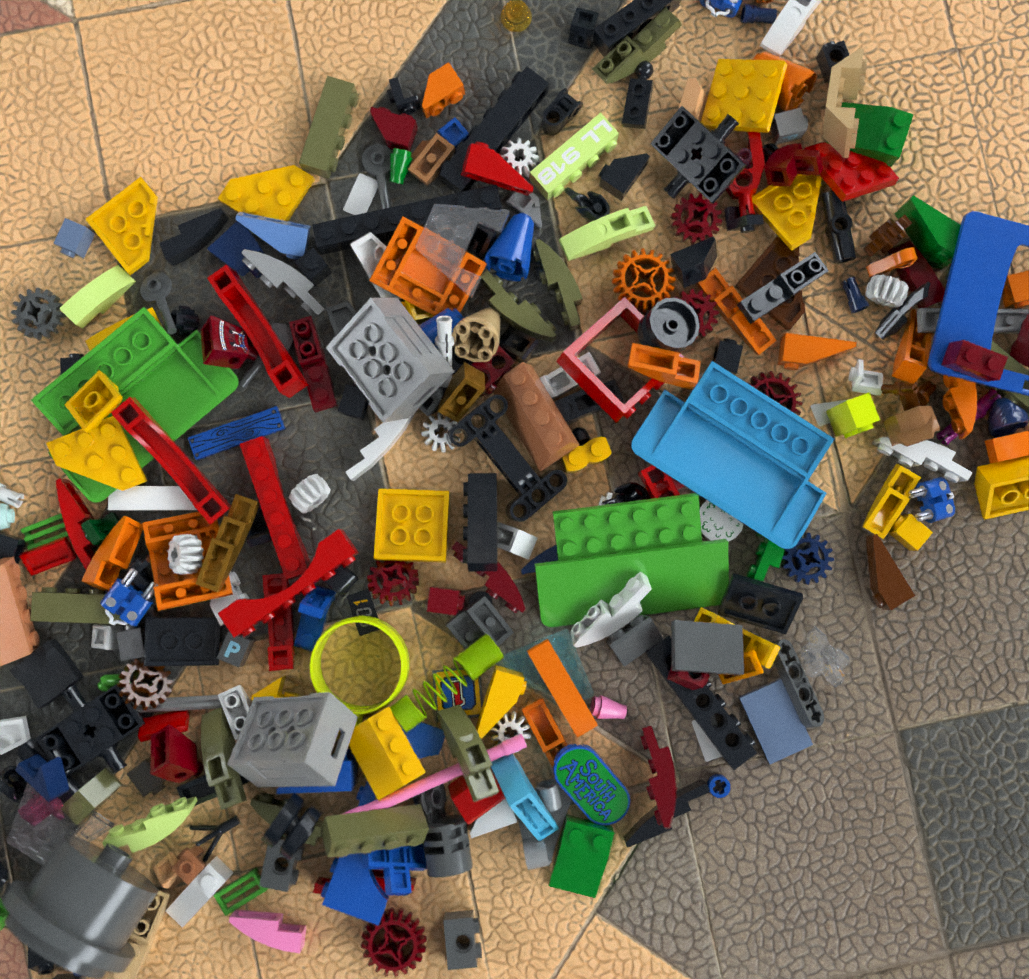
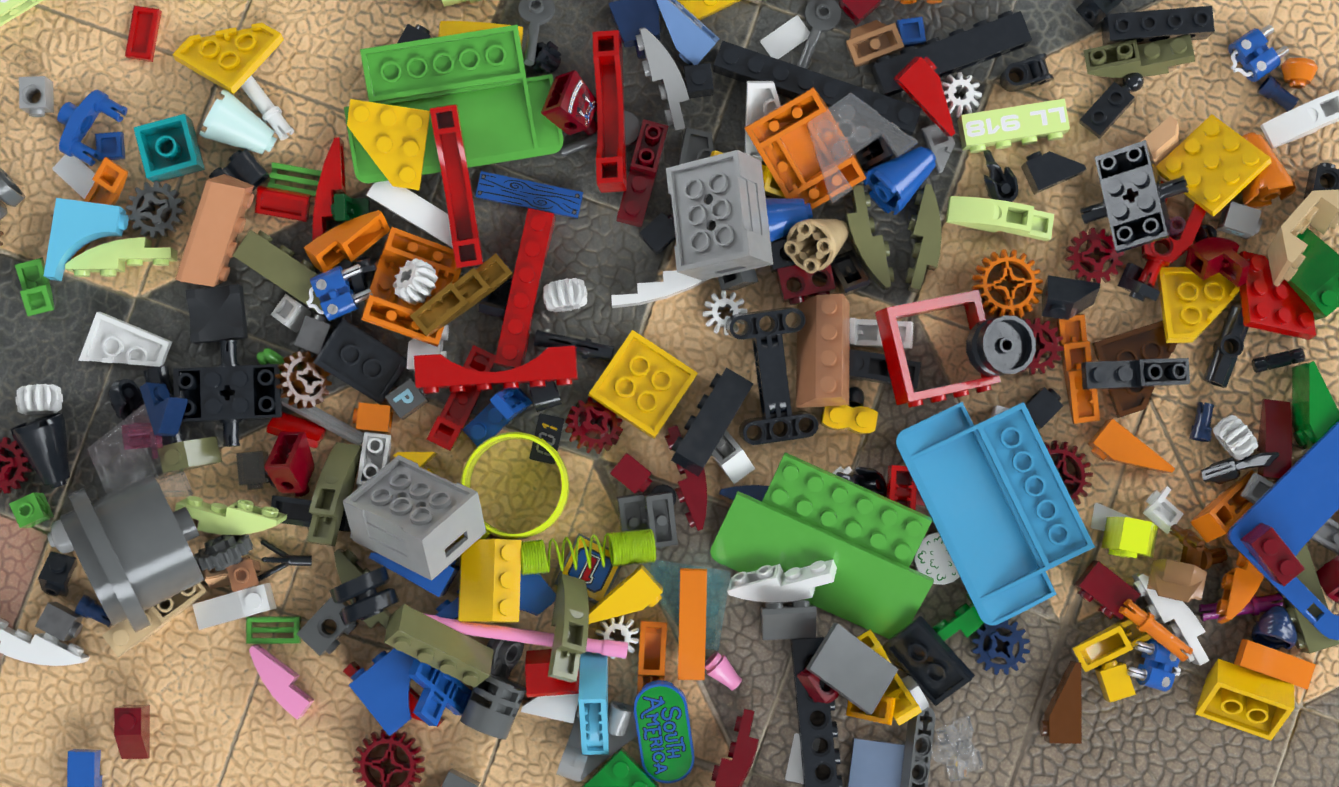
camera: 30 degrees right, 0 degrees up
(94, 401) = (420, 88): yellow slope -> none
(162, 858) = (223, 552): none -> dark grey gear
(218, 679) = (373, 417): none -> orange brick
(351, 524) = (585, 348): none -> black pin
(399, 163) = (840, 32): green cone -> none
(445, 341) = (781, 230): white pin -> none
(462, 392) = (768, 287): pearl gold slope -> none
(664, 366) = (975, 379): orange slope -> none
(765, 634) = (916, 692): none -> tile
(862, 466) = (1105, 589): none -> dark red brick
(881, 214) = (1278, 360): none -> black axle
(887, 236) = (1268, 385): reddish brown gear -> none
(891, 262) = (1258, 413): orange piece -> none
(909, 473) = (1147, 623): none -> orange pin

